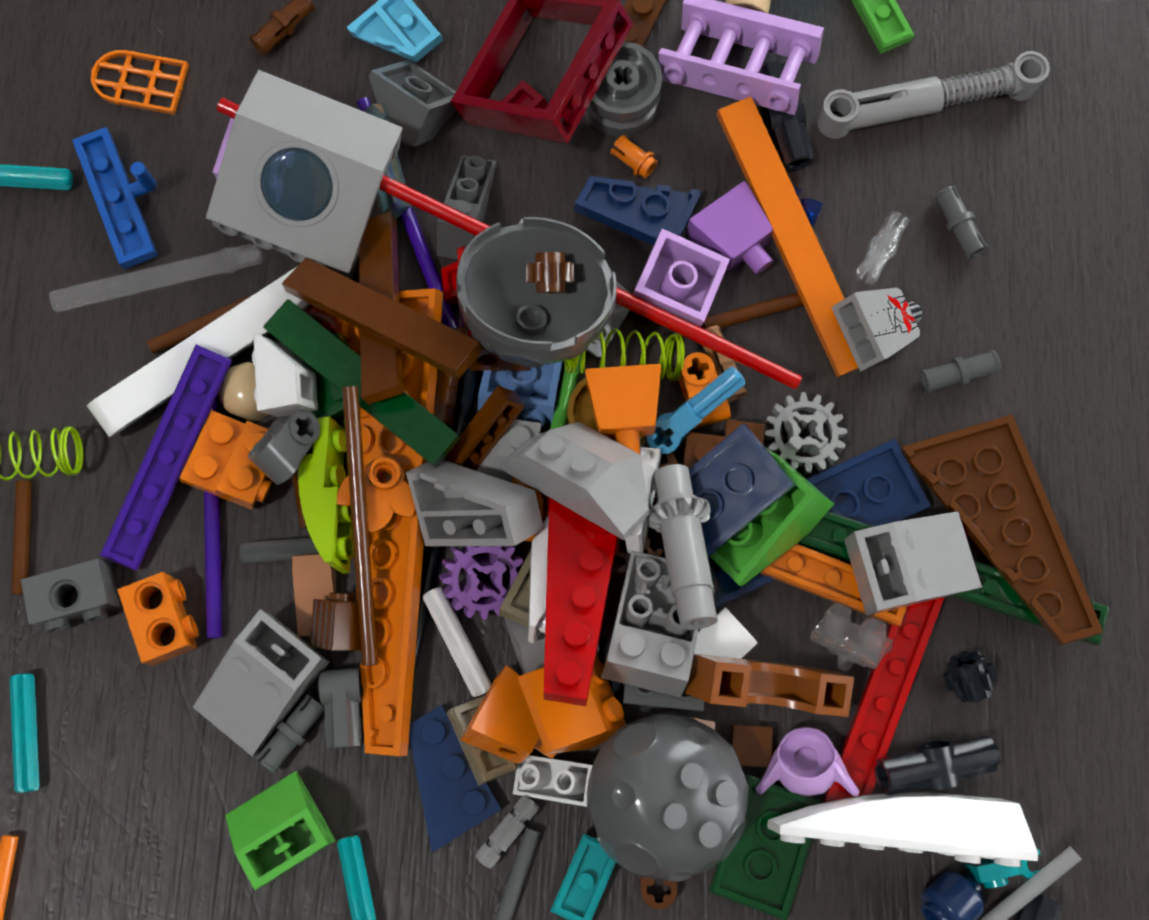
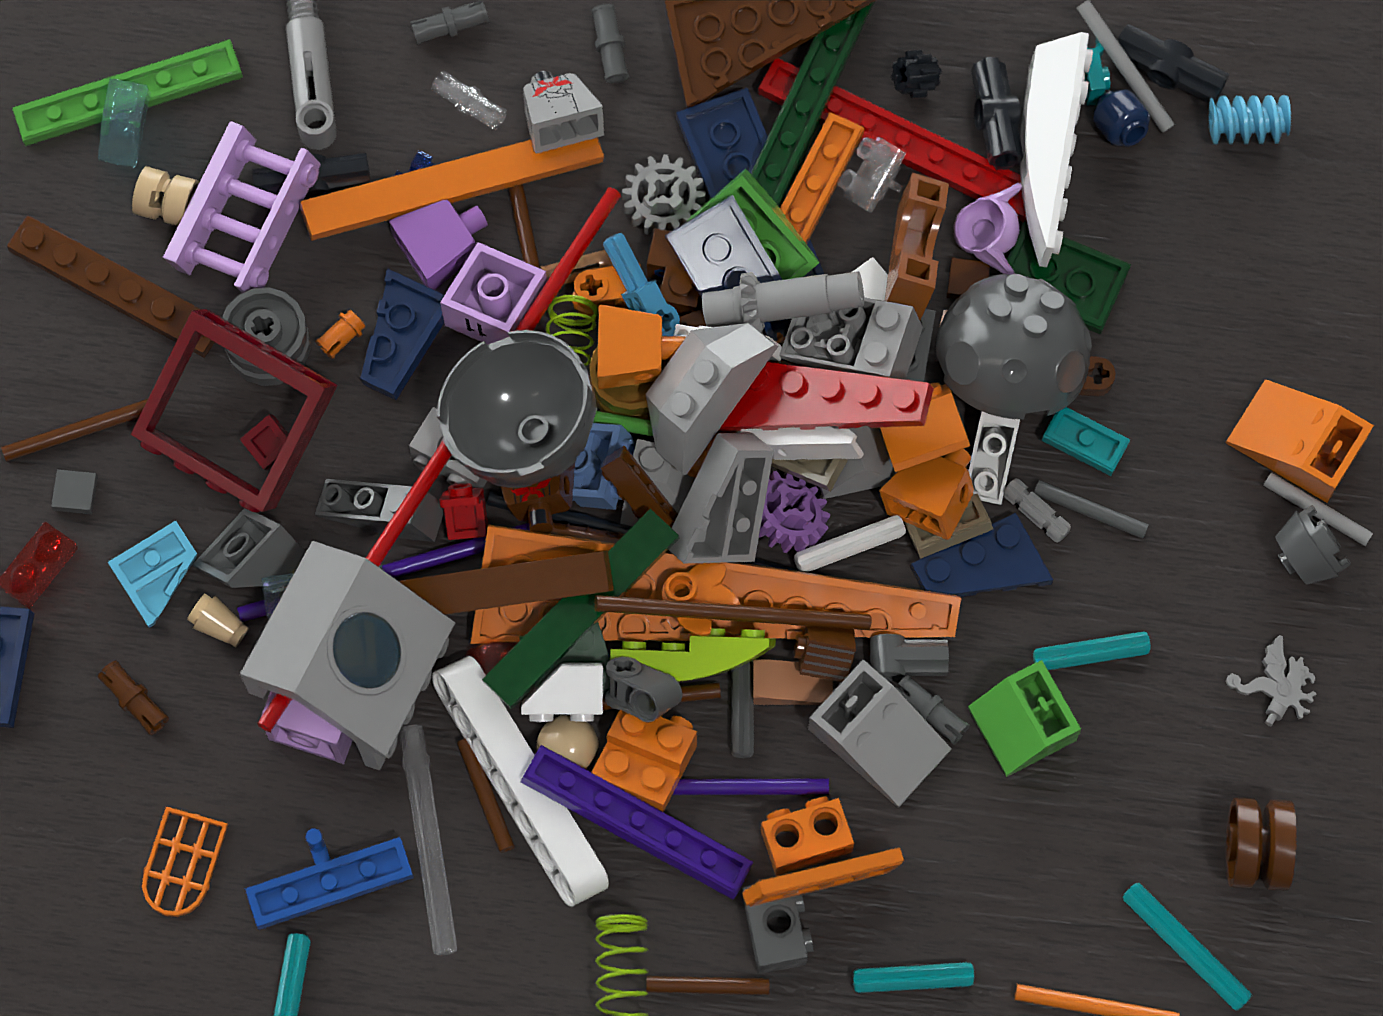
camera: 85 degrees left, 5 degrees down
(101, 634) = (823, 877): none -> orange tile
(353, 80) = (217, 620): none -> tan cone
(383, 318) = (520, 574): reddish brown tile -> none
(550, 272) = (495, 400): reddish brown gear -> none
(911, 562) = (809, 107): light grey slope -> none

